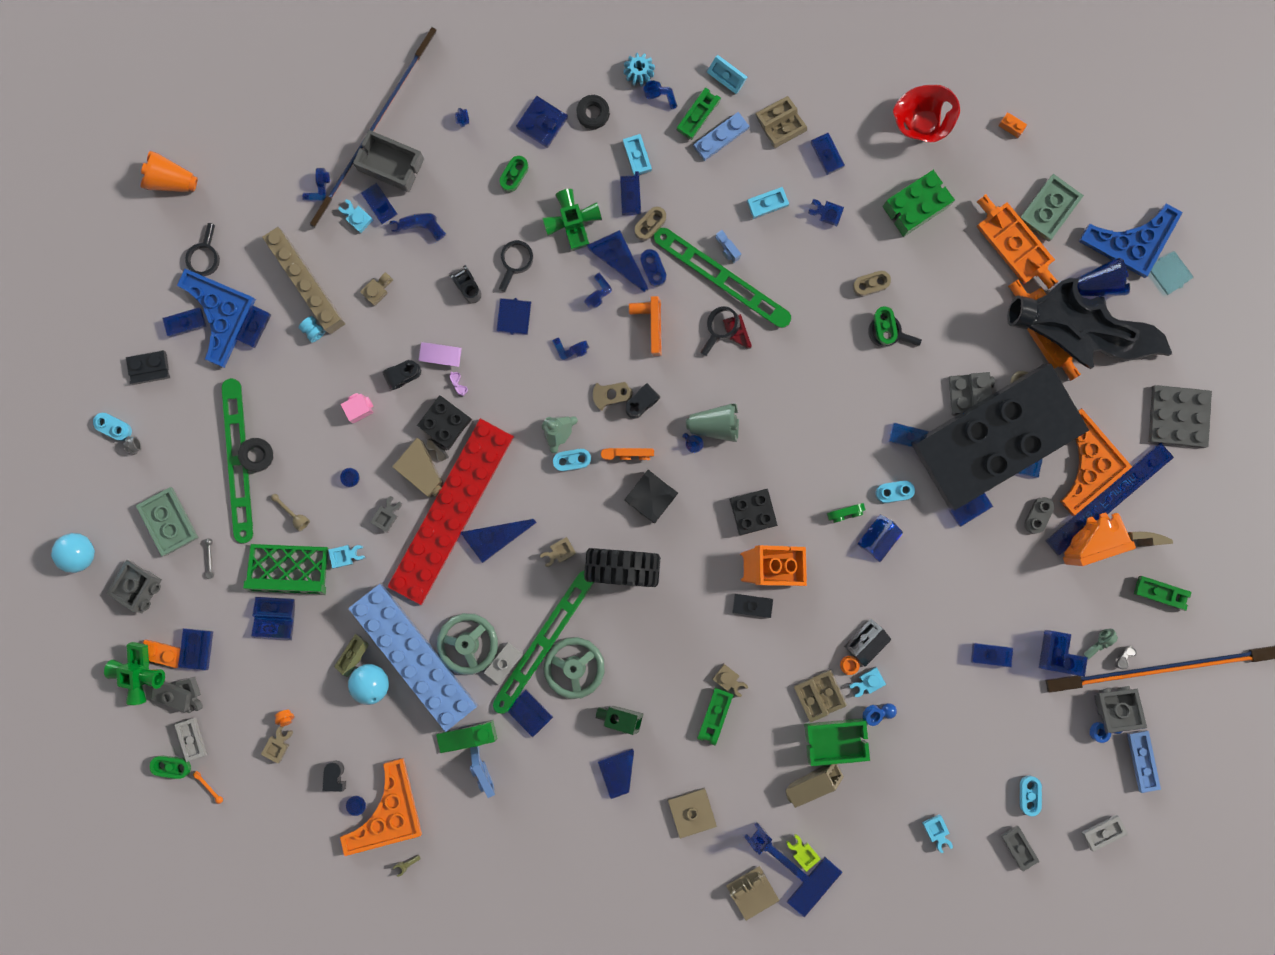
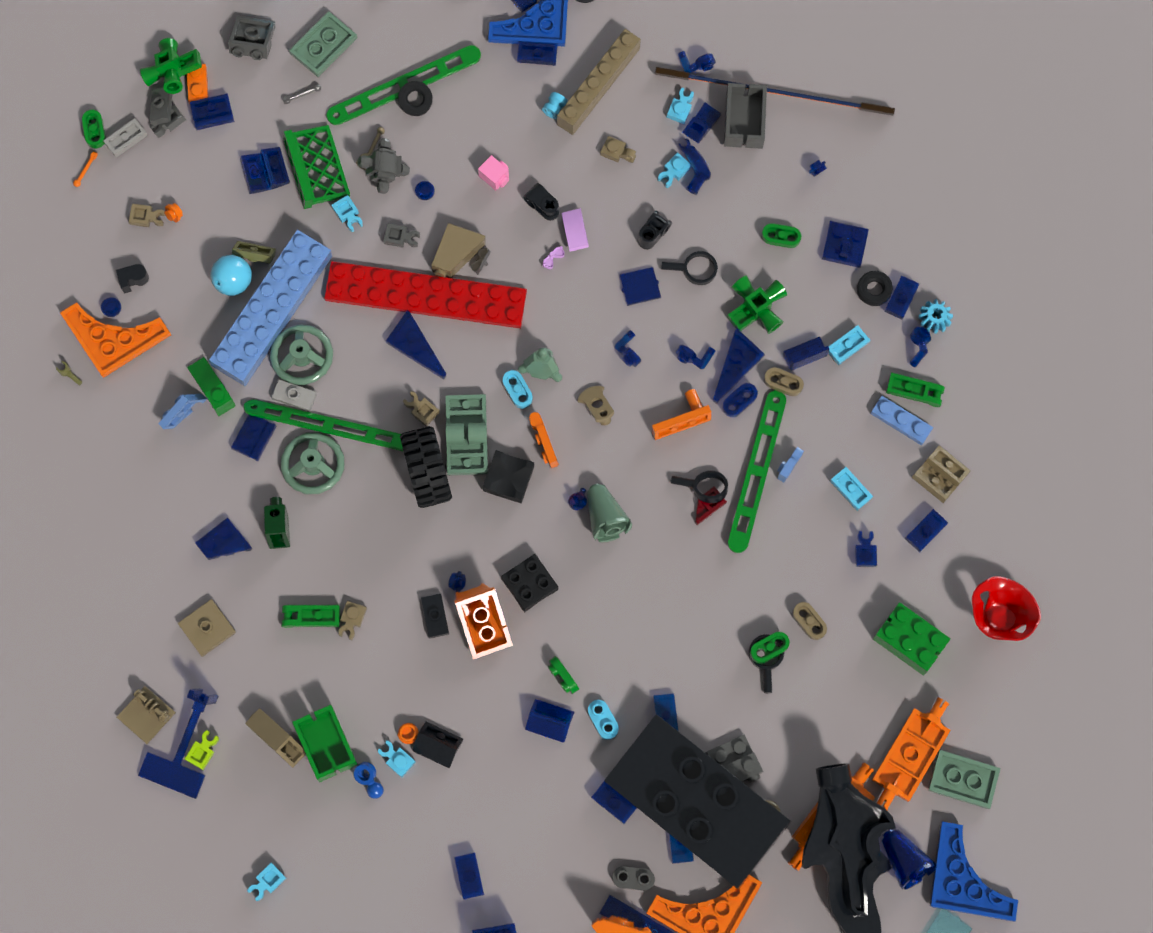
camera: 70 degrees right, 10 degrees down
(313, 507) = (383, 165): none -> dark grey piece
(414, 243) = (675, 168): none -> medium azure plate
(444, 422) = (510, 257): black brick -> none
(597, 520) = (466, 434): none -> sand green plate
(610, 91) = (902, 297): none -> clear blue plate
(644, 399) = (602, 436): black piece -> none
(727, 74) = (966, 402): medium azure plate -> none
(730, 575) = (457, 581): none -> clear blue plate
(820, 696) = (367, 715): dark tan slope -> none
(1012, 125) = (1036, 710): orange piece -> none

